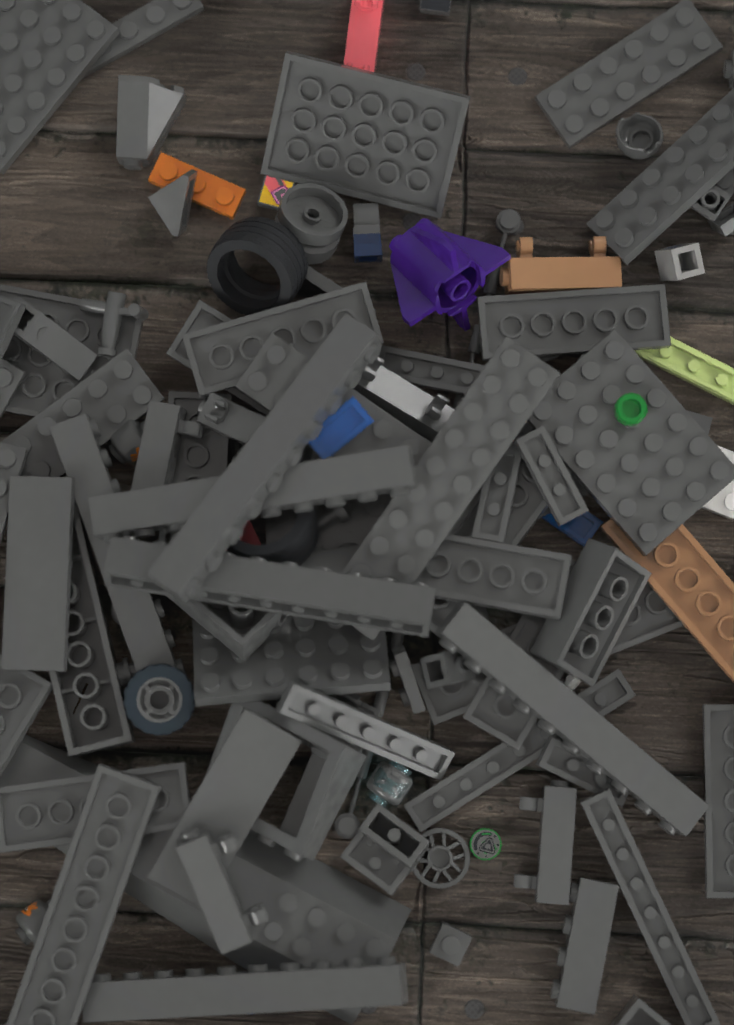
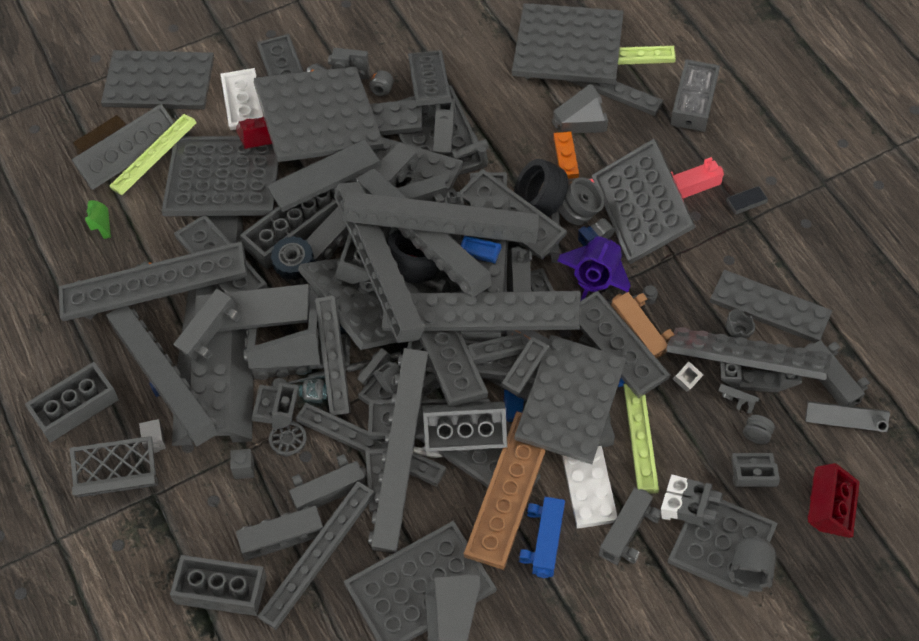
camera: 60 degrees right, 25 degrees down
(175, 202) = (550, 144): dark grey slope -> none
(485, 844) = (308, 456): tile -> none
(630, 409) = (587, 383): green tile -> none

